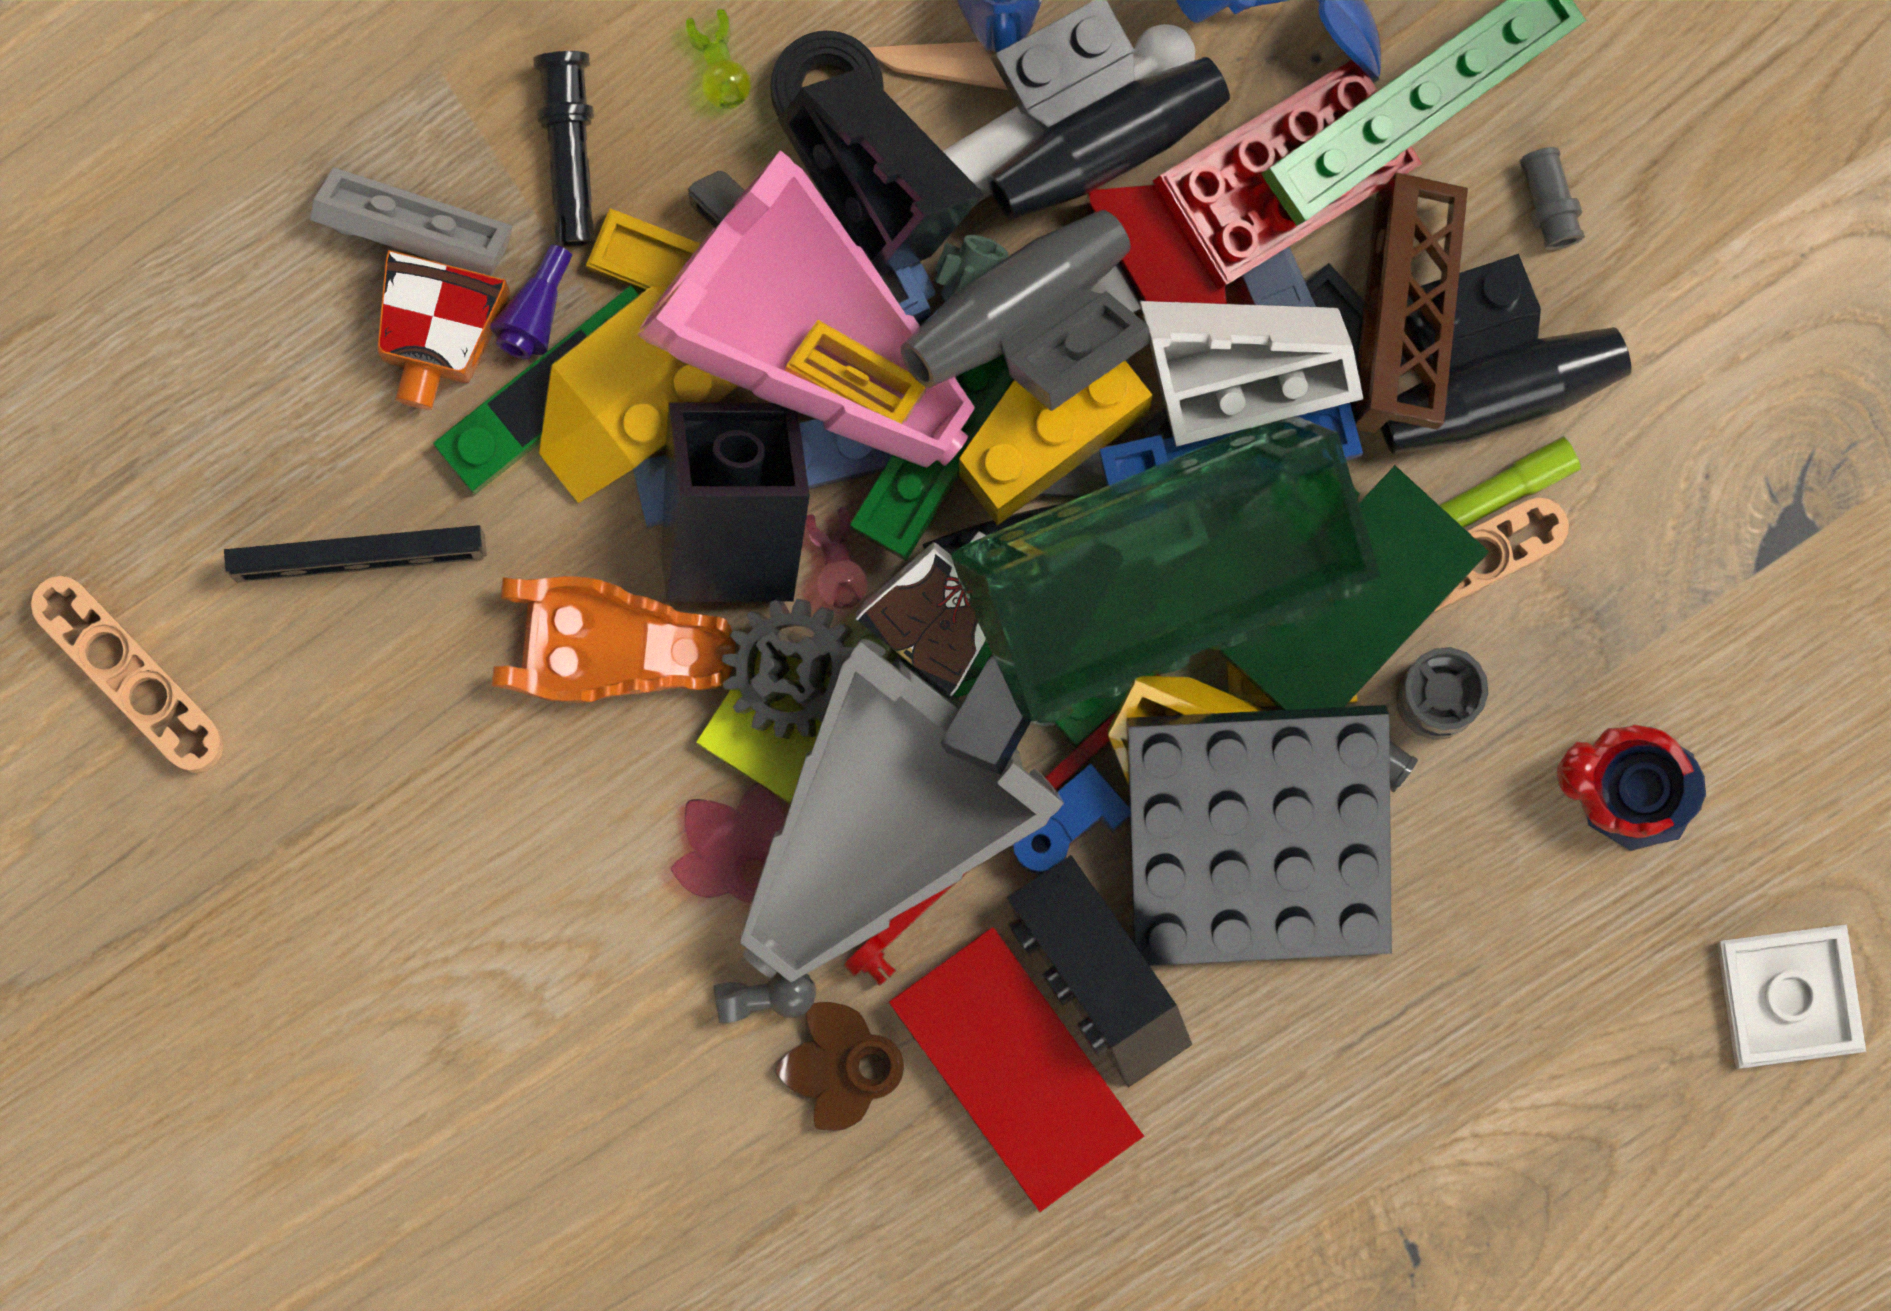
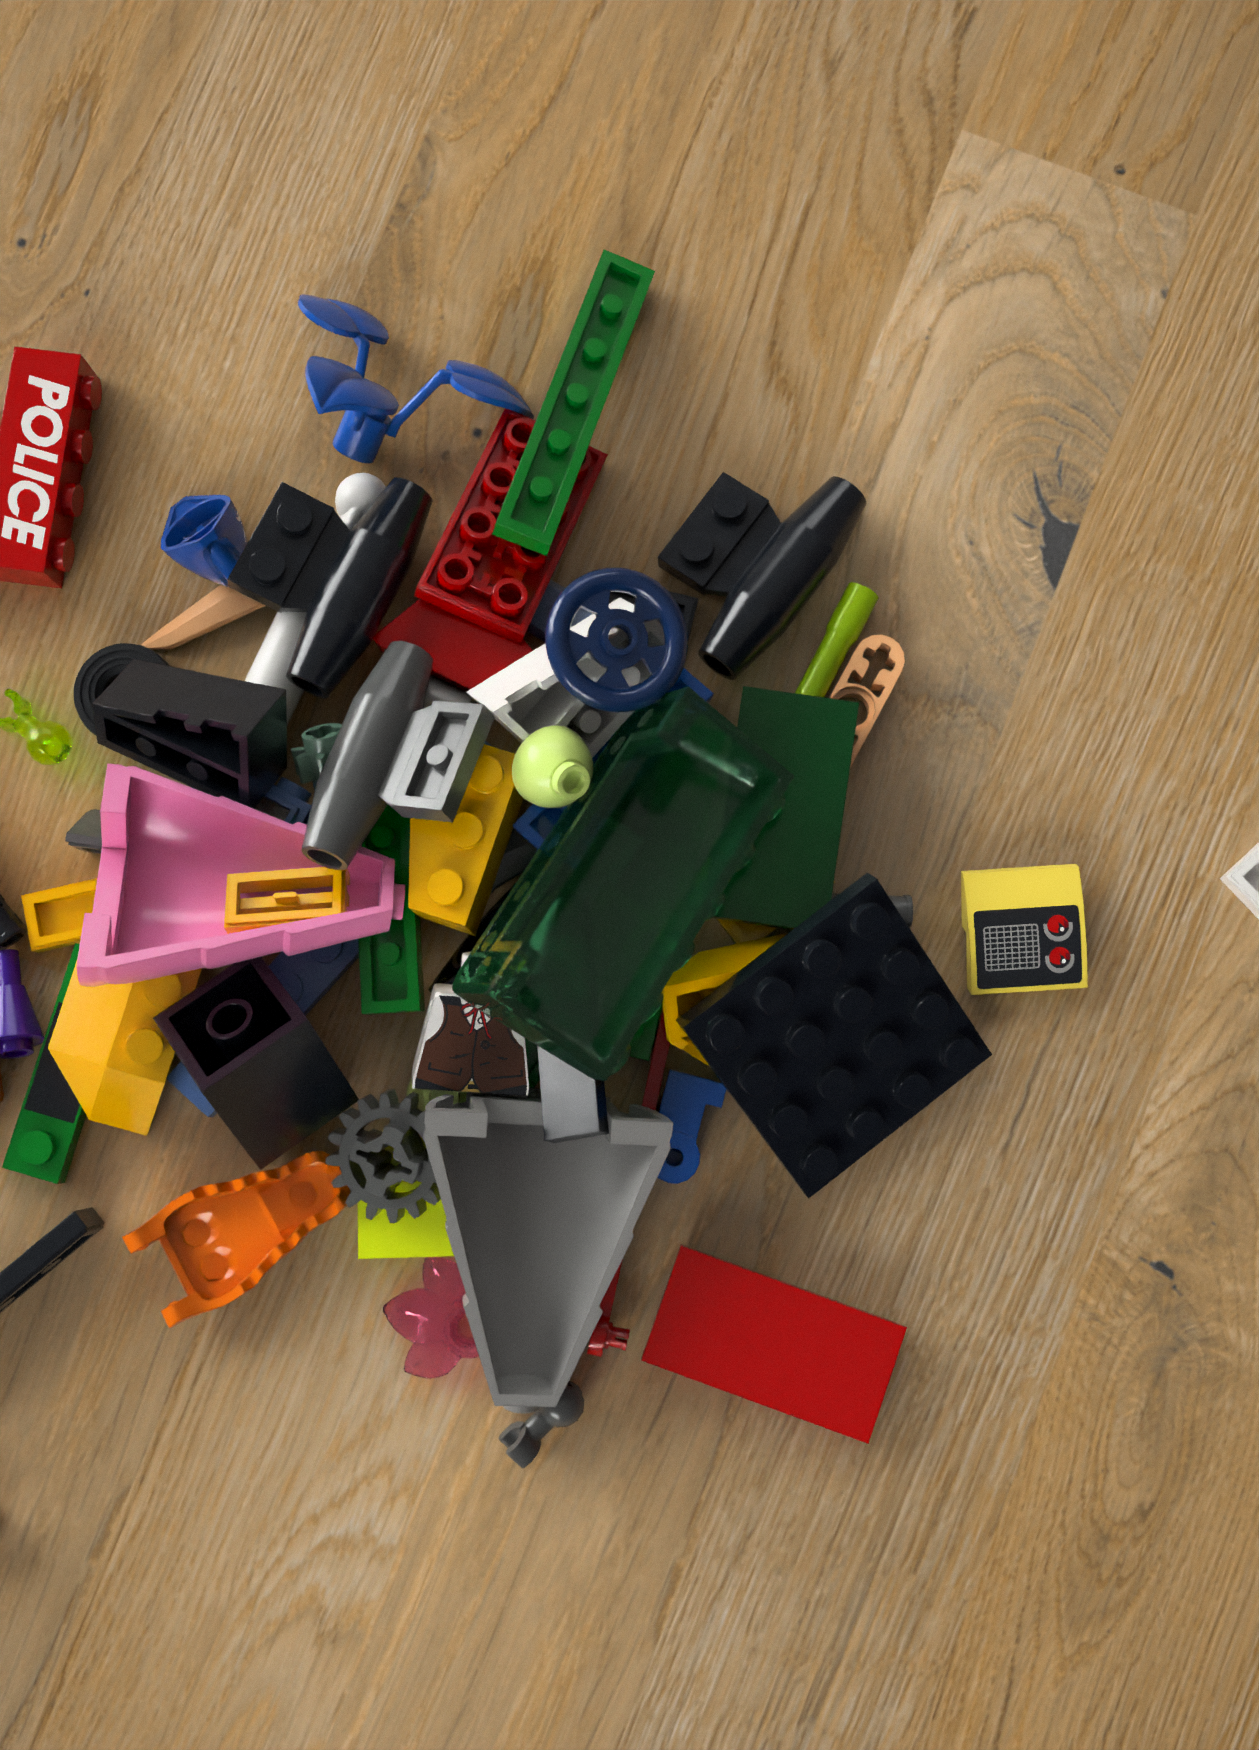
camera: 25 degrees left, 0 degrees up
(831, 1063) = (629, 1436): reddish brown plate -> none
(839, 572) = (380, 1052): clear pink arm -> none
(1098, 970) = (782, 1226): black wedge -> none
(1171, 421) = (552, 767): none -> yellowish green brick
(1270, 389) = (568, 647): none -> dark blue plate
(1386, 303) = (647, 553): reddish brown fence -> none
(1442, 693) = (896, 832): dark grey wheel -> none
(1500, 861) = (1024, 929): none -> slope
(1555, 209) = (726, 420): dark grey pin -> none
(1634, 785) = (1085, 802): piece -> none

